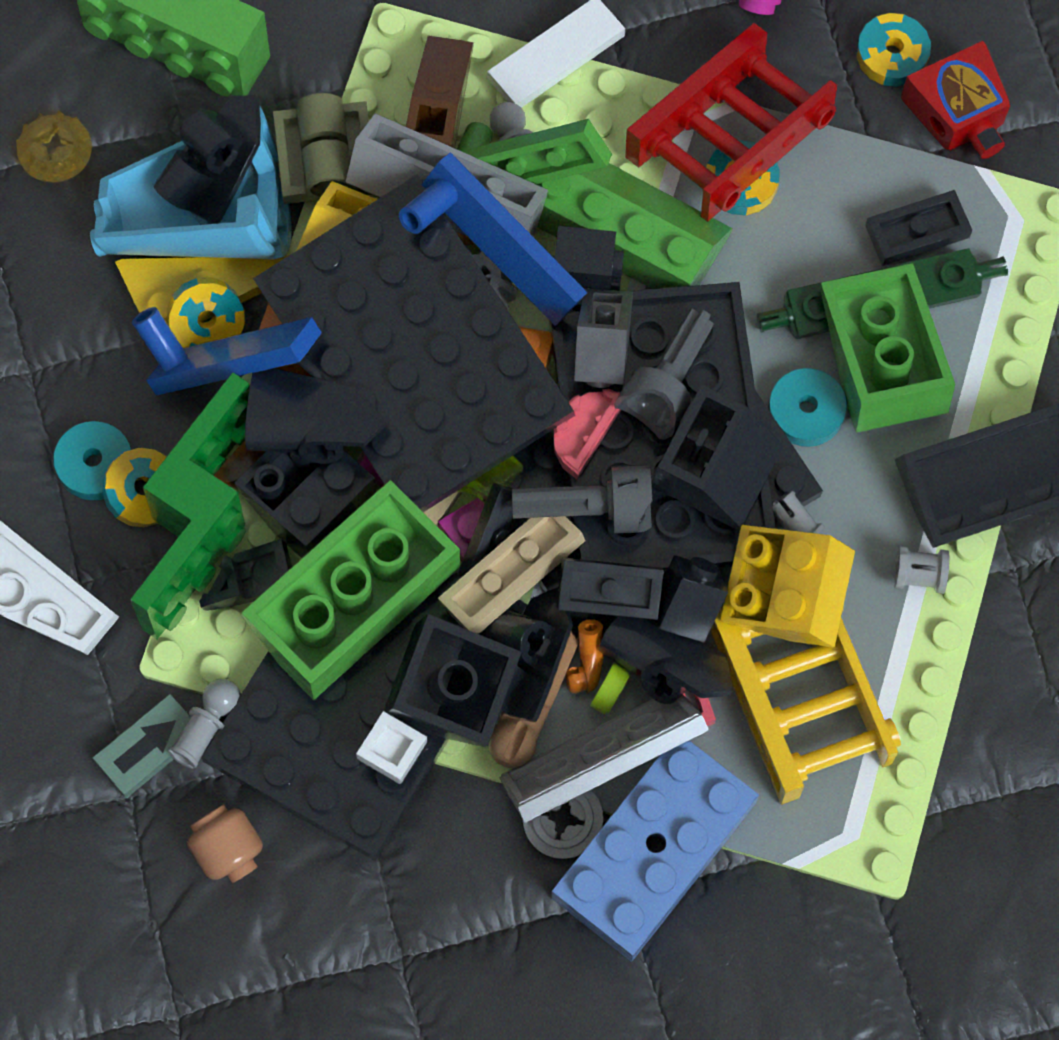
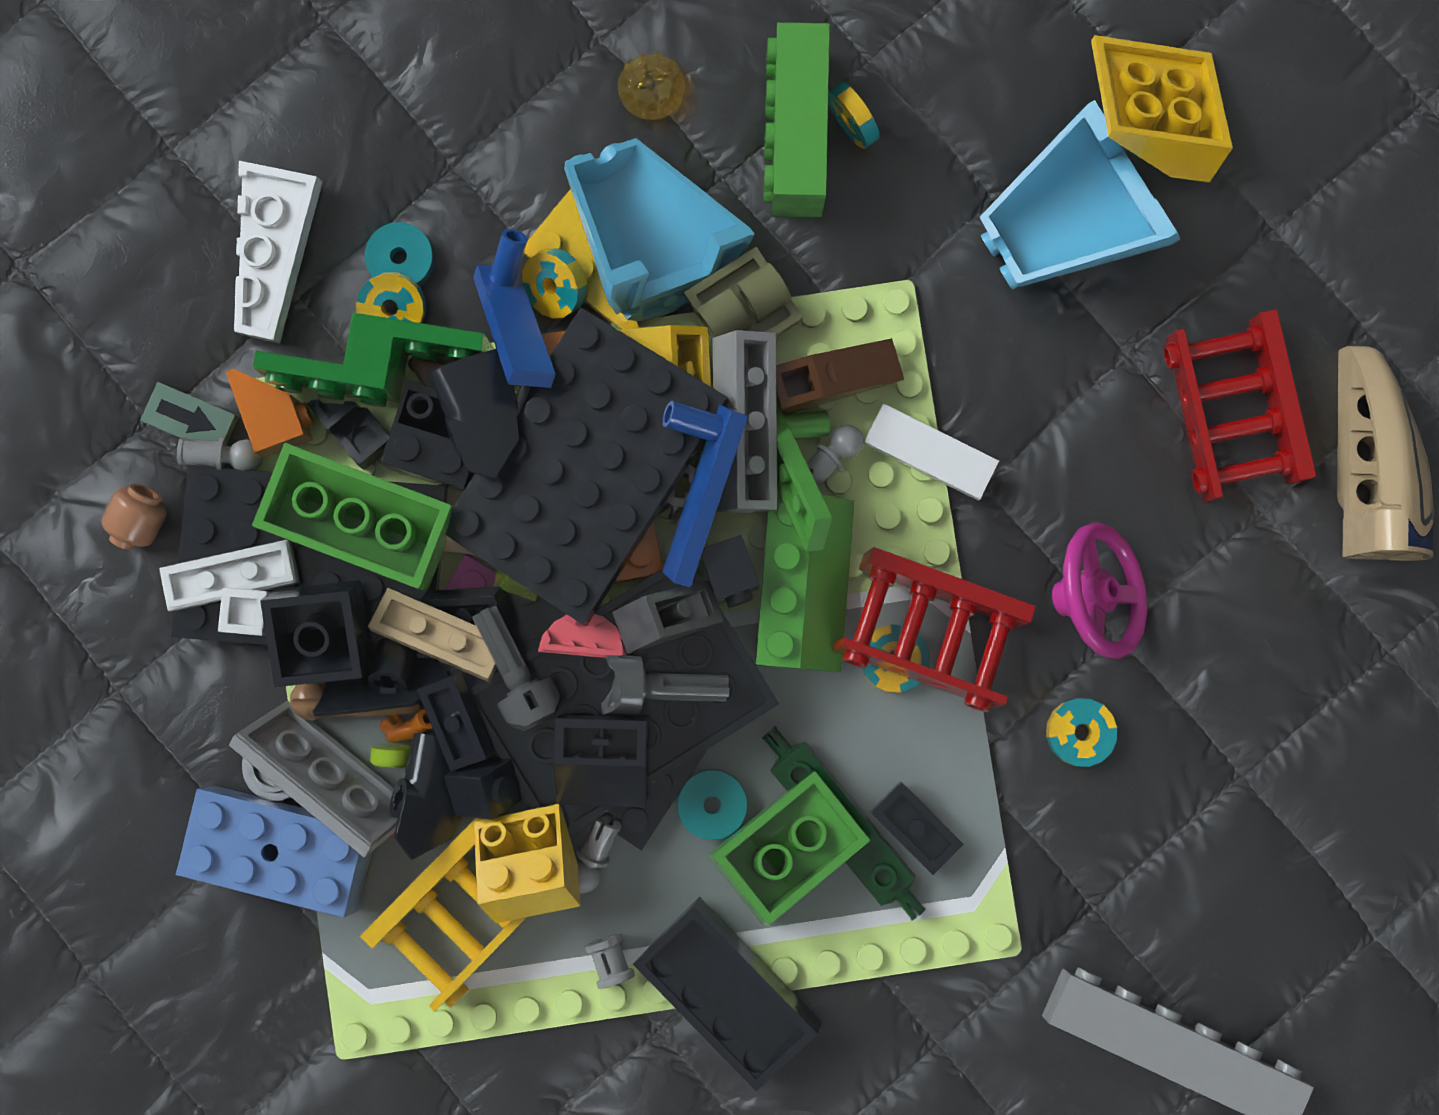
camera: 70 degrees right, 15 degrees up
(190, 646) = (270, 414): none -> orange slope
(214, 160) = (683, 220): black panel -> none
(337, 772) = (249, 569): none -> white tile
(960, 100) = (1056, 813): red torso -> none

